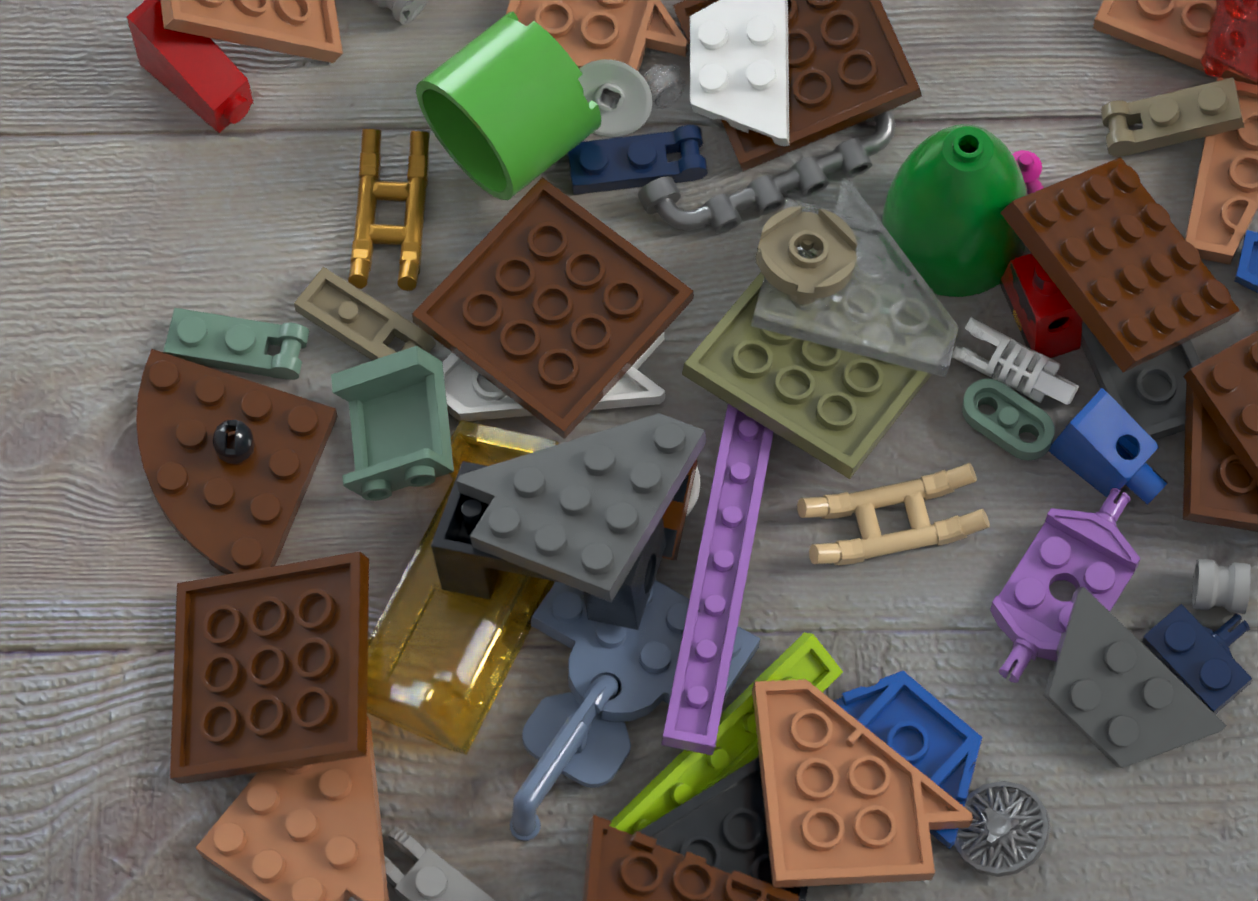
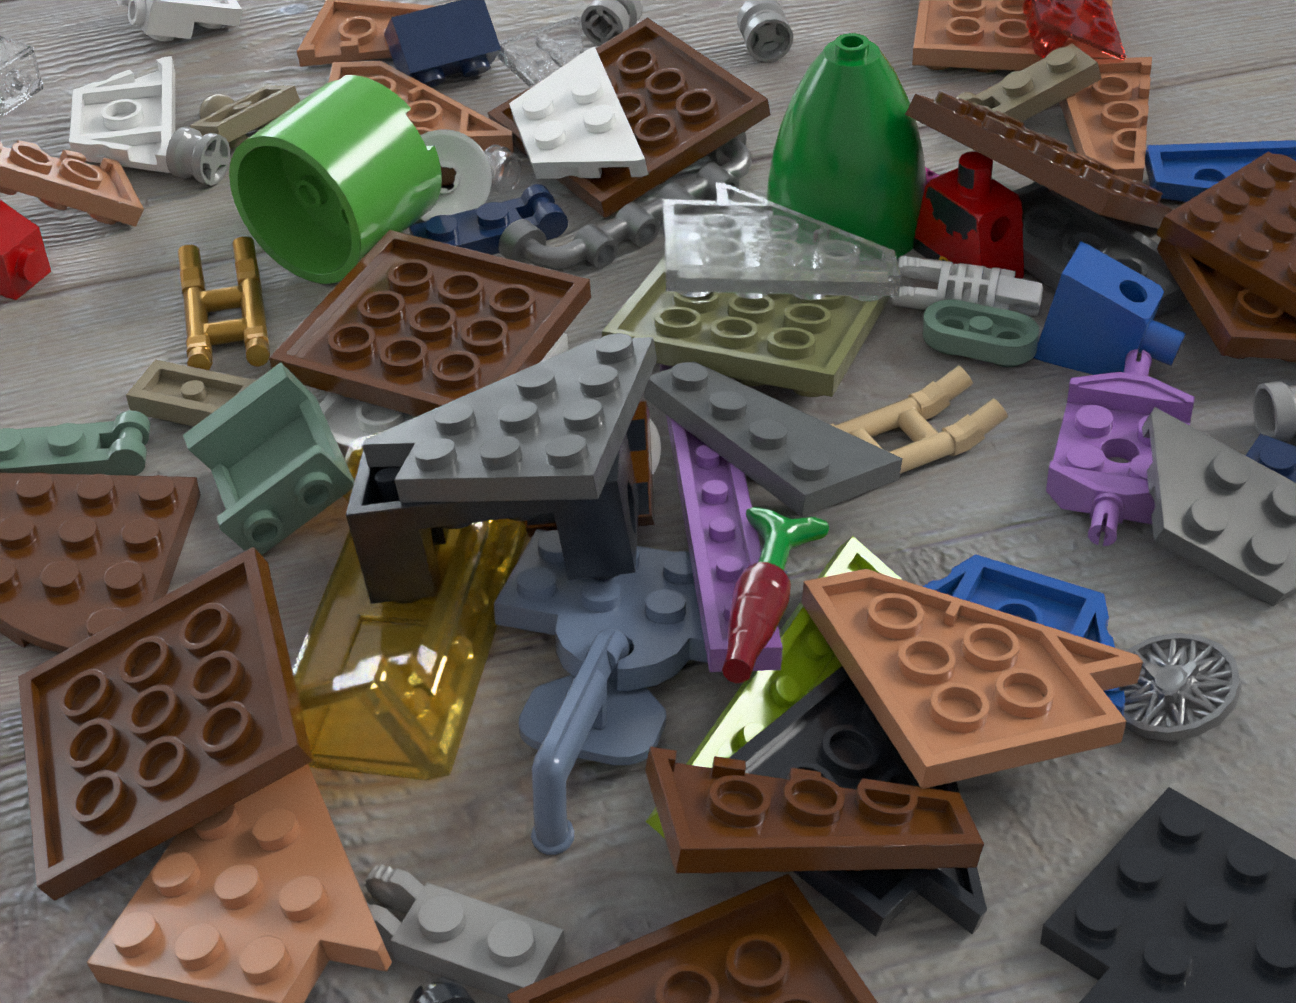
camera: 15 degrees left, 25 degrees down
(243, 441) = (74, 530): black hinge -> none
(716, 694) = (764, 588): none -> dark red piece
(786, 523) = (772, 443): none -> dark grey wing
(804, 277) = (705, 218): dark tan plate -> none

